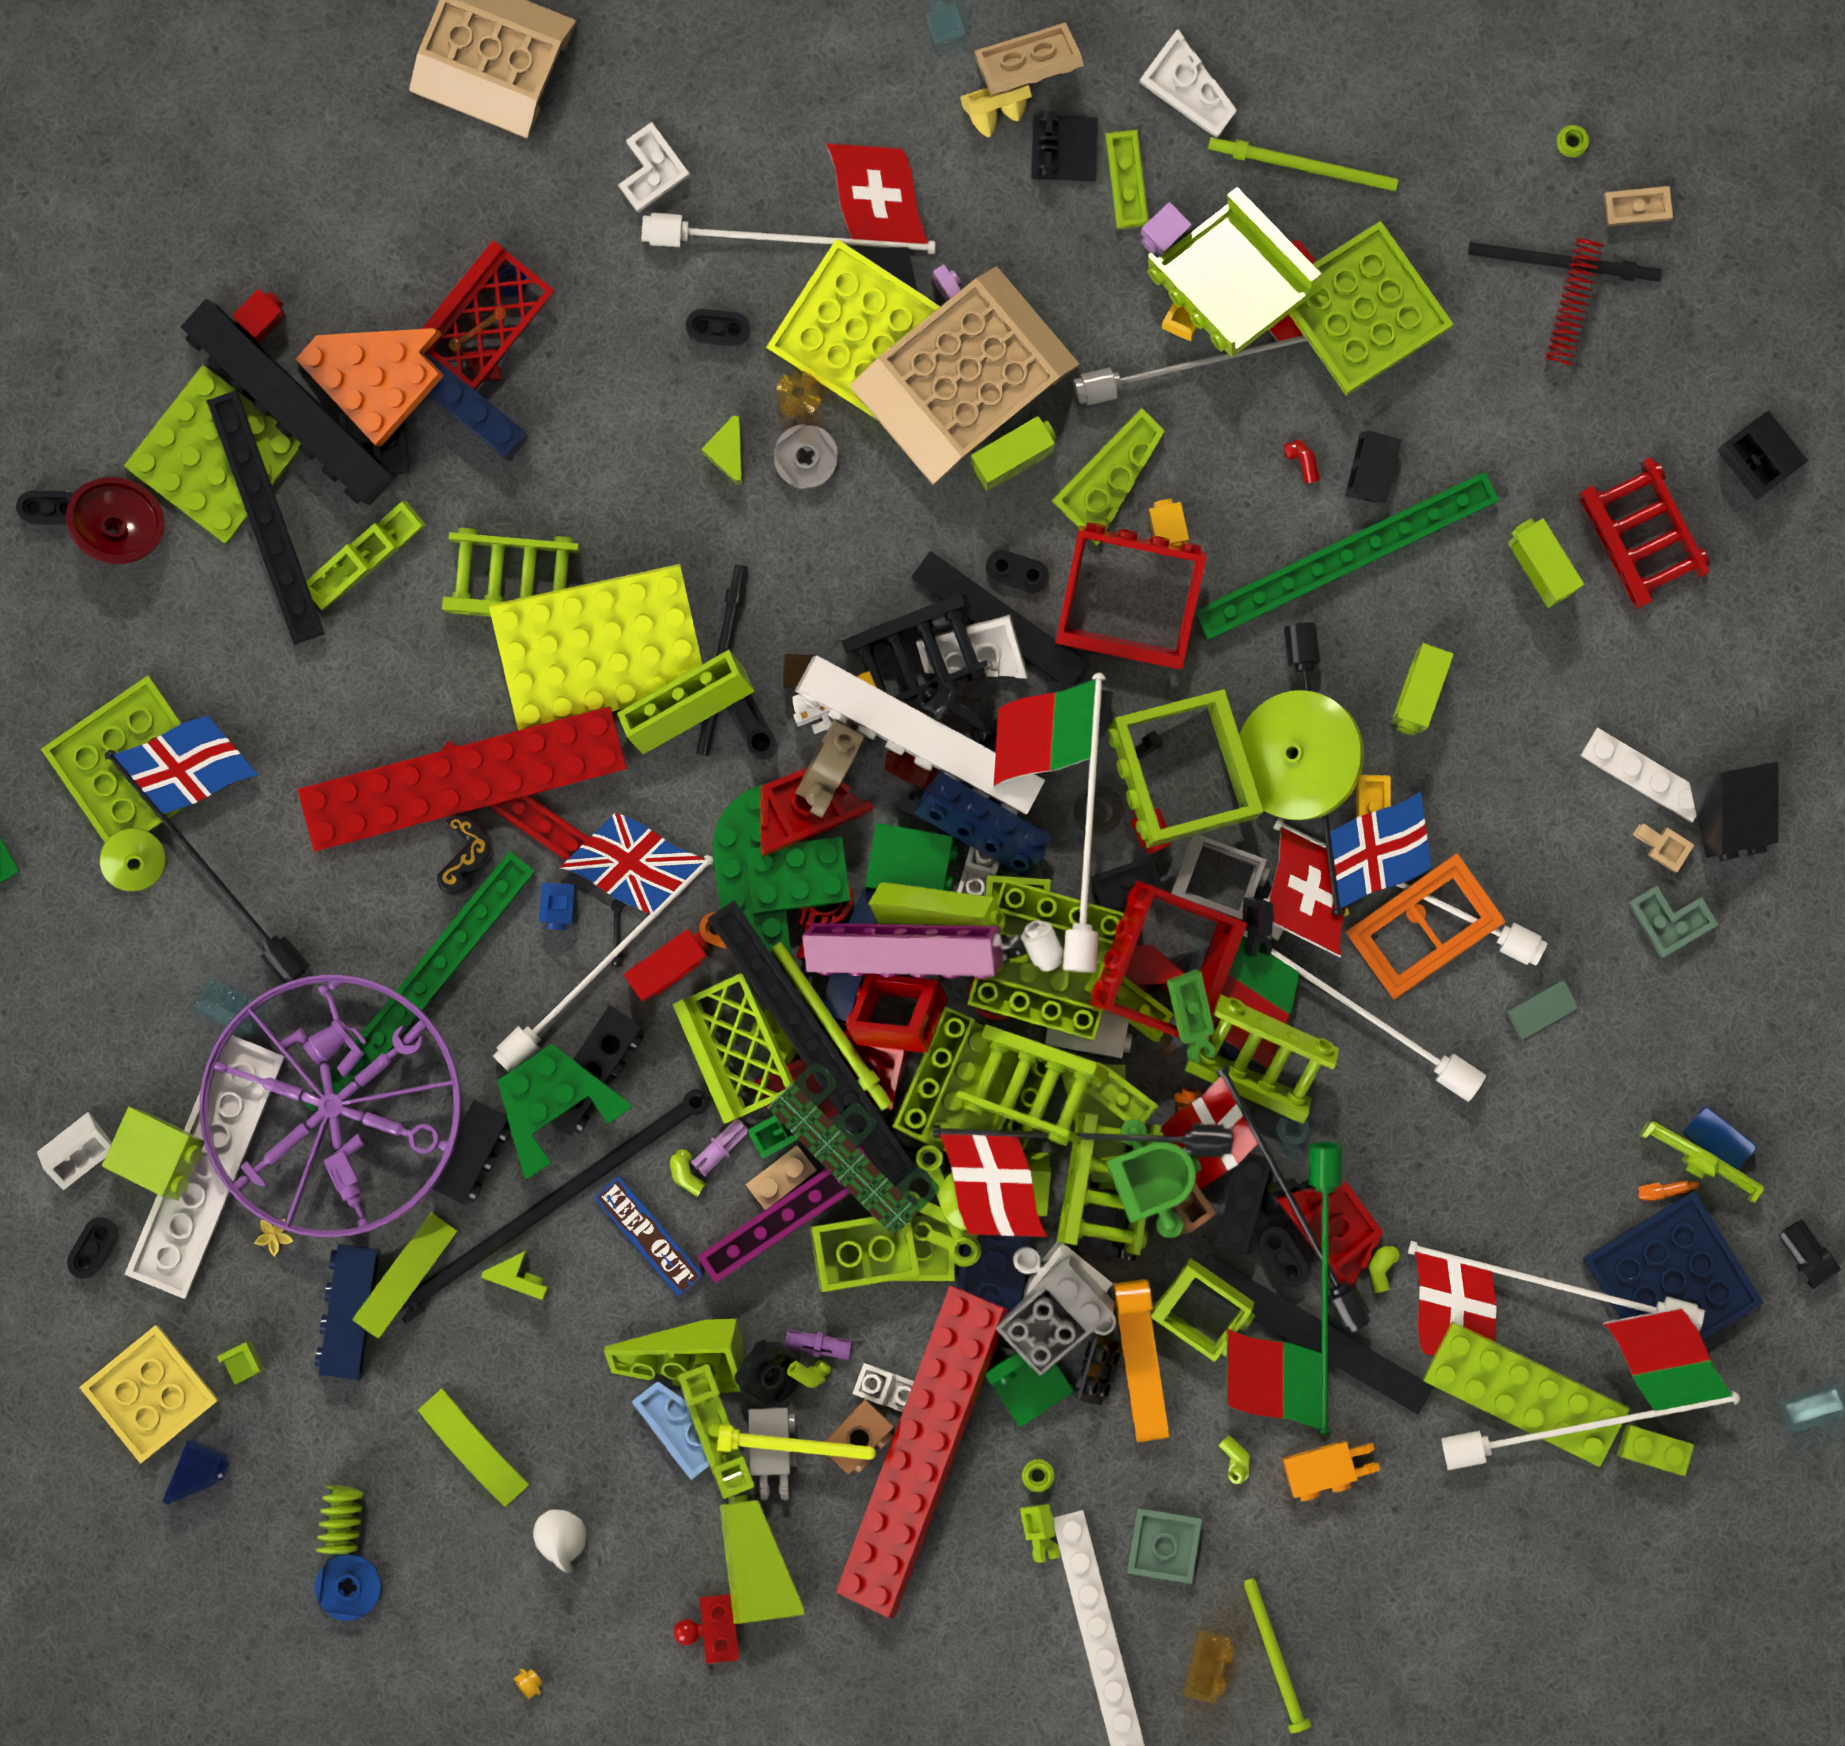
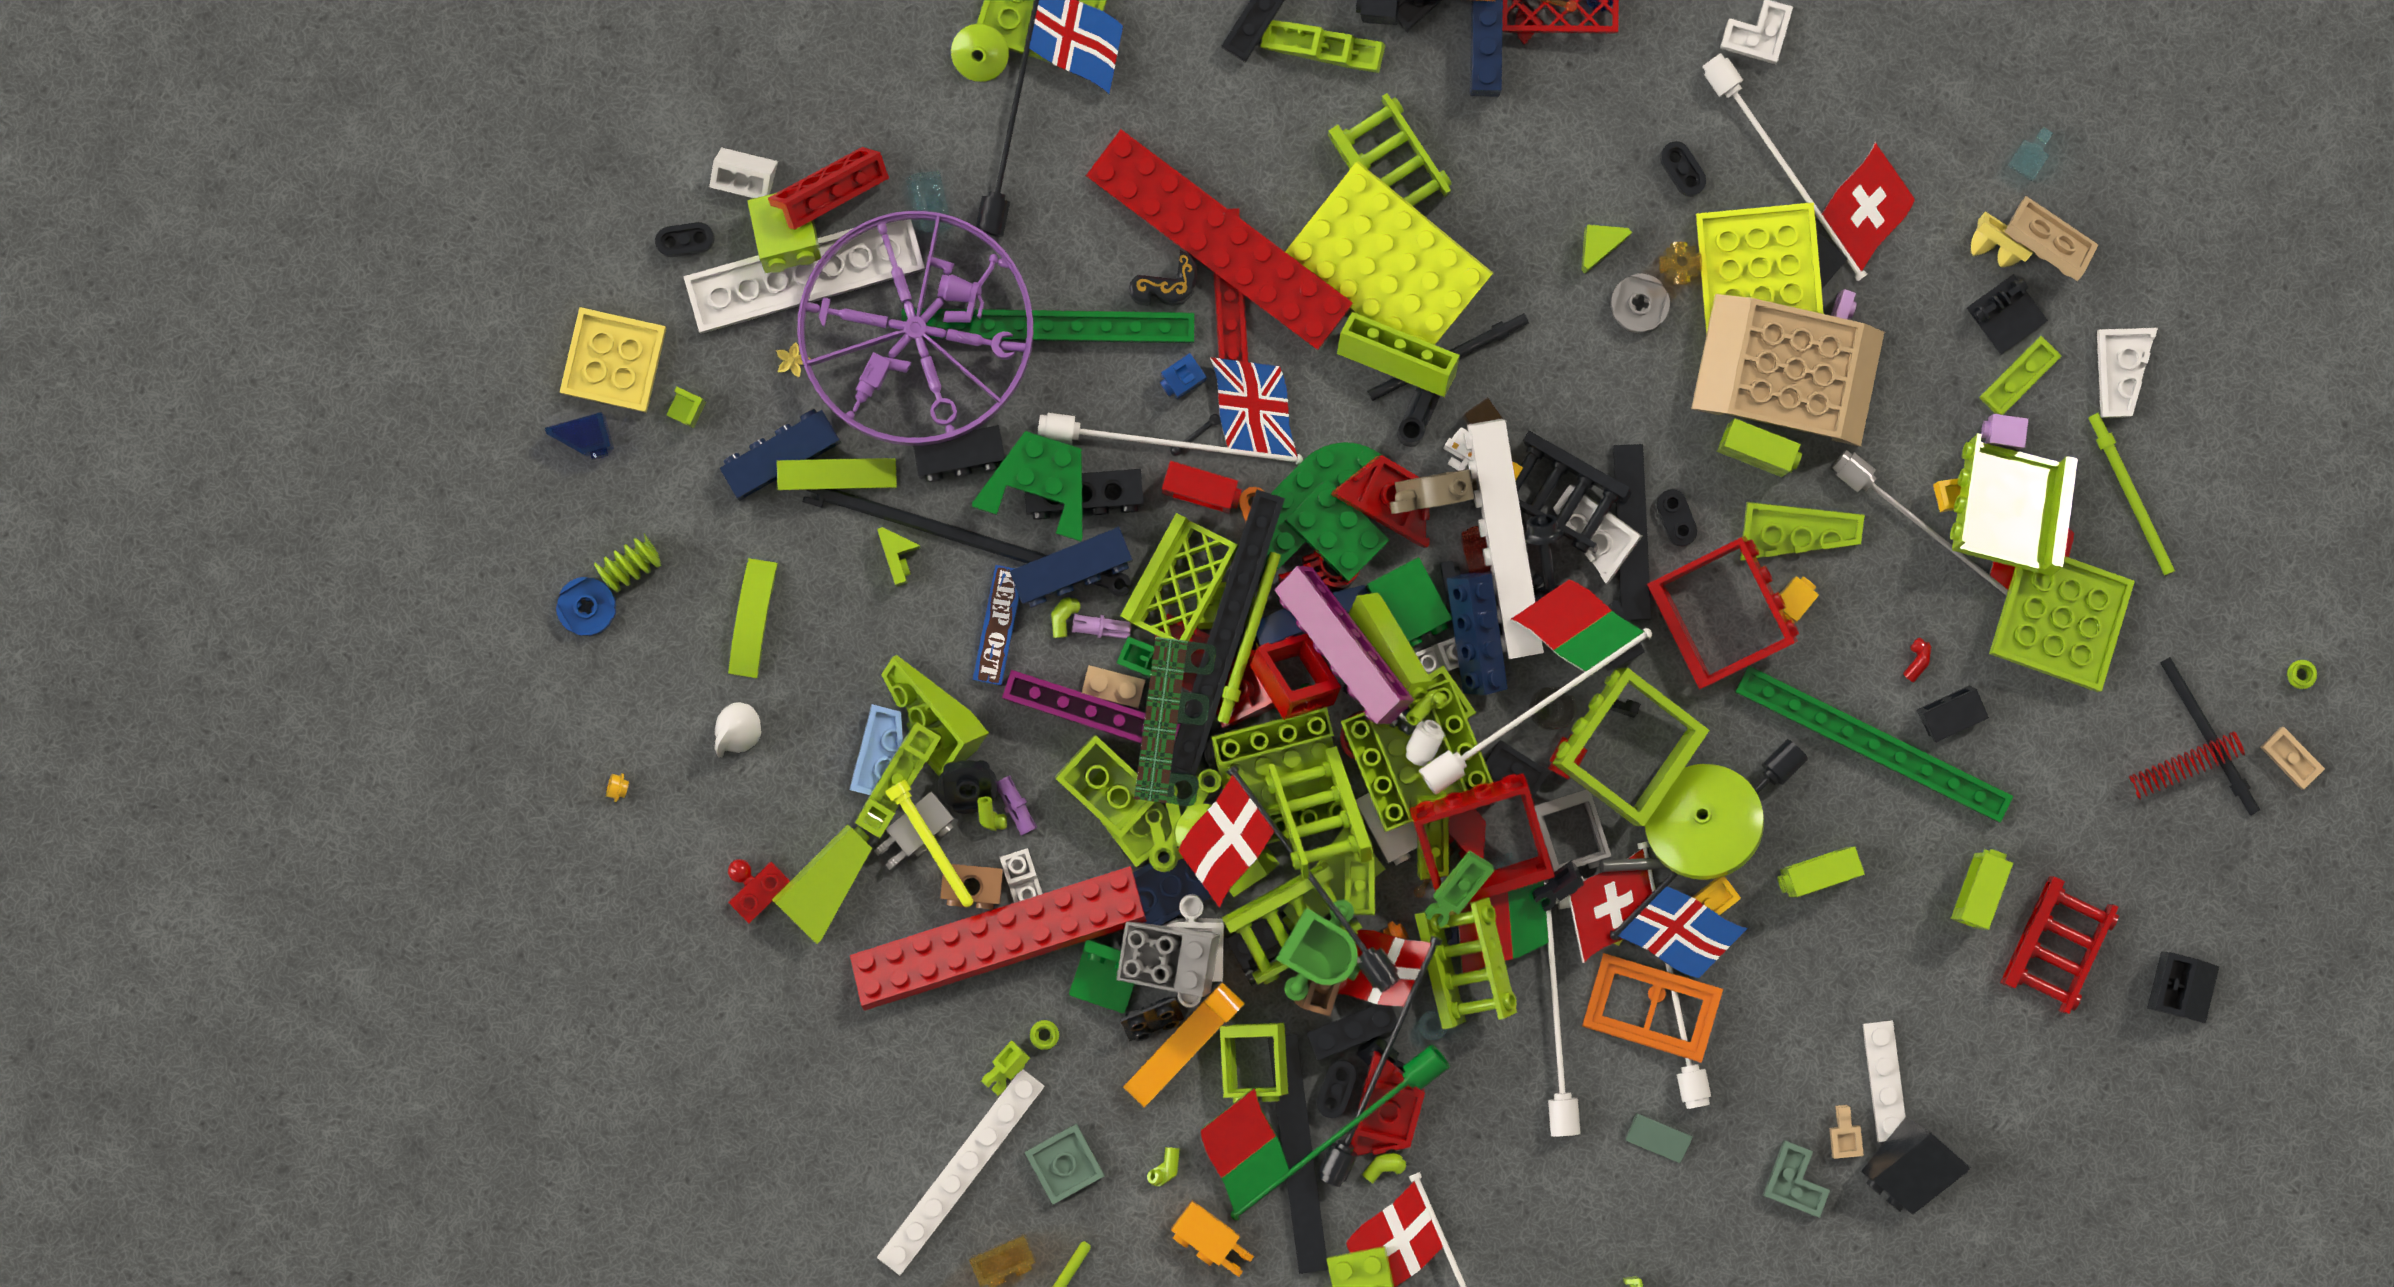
camera: 45 degrees right, 0 degrees up
(147, 1084) = (830, 187): none -> red fence
(647, 1133) = (1071, 566): none -> dark blue brick
(1011, 919) = (1425, 706): none -> lime arm
(1287, 848) = (1631, 864): none -> dark grey bar

